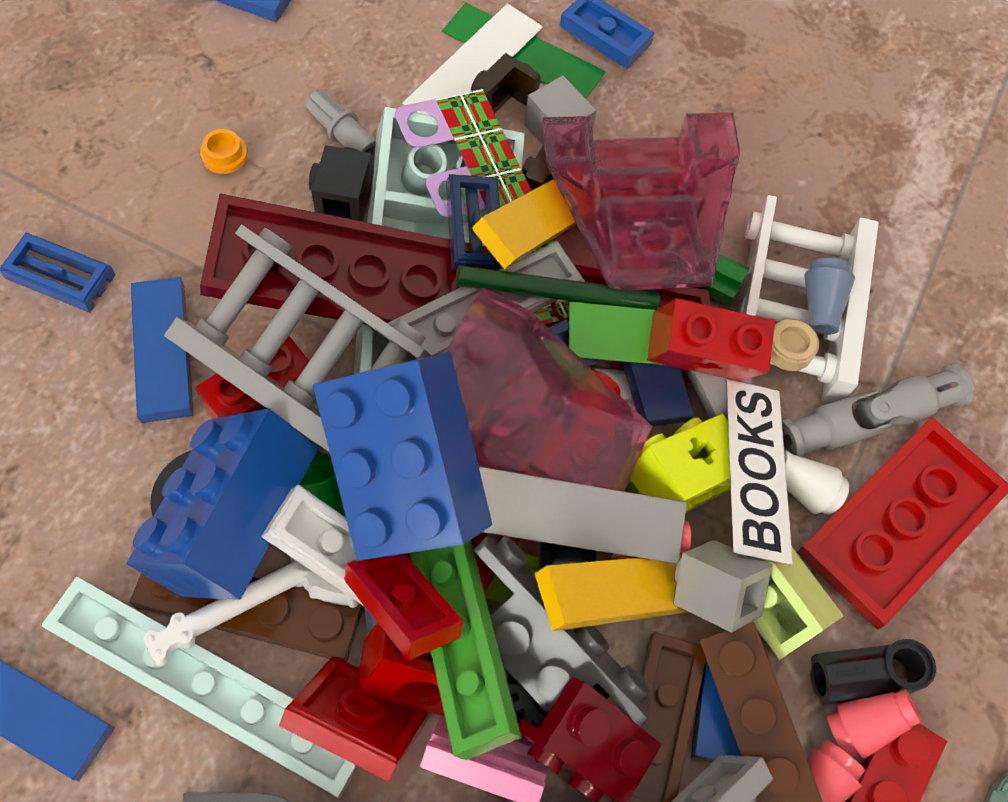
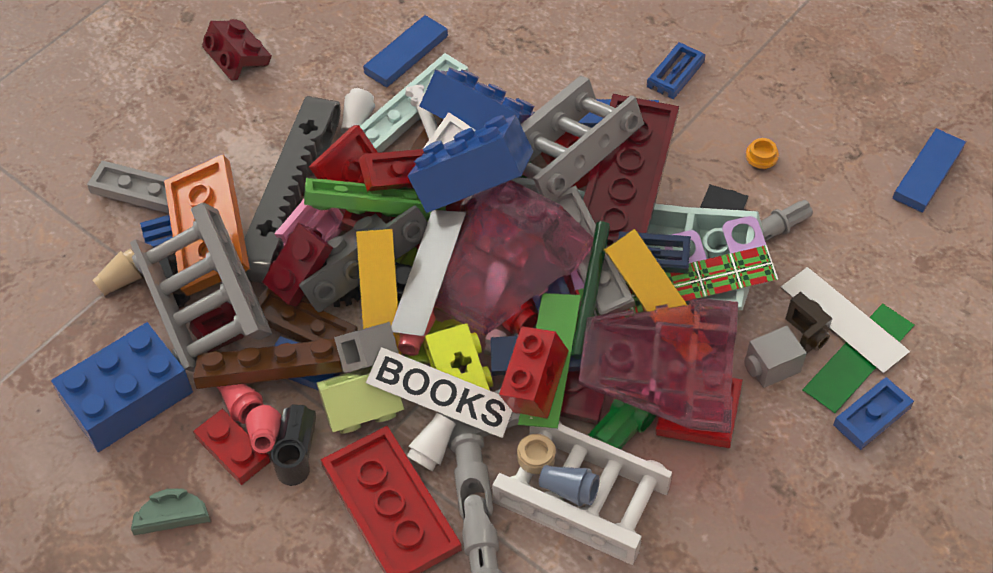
camera: 110 degrees right, 10 degrees down
(195, 759) = (357, 108): none -> white cone

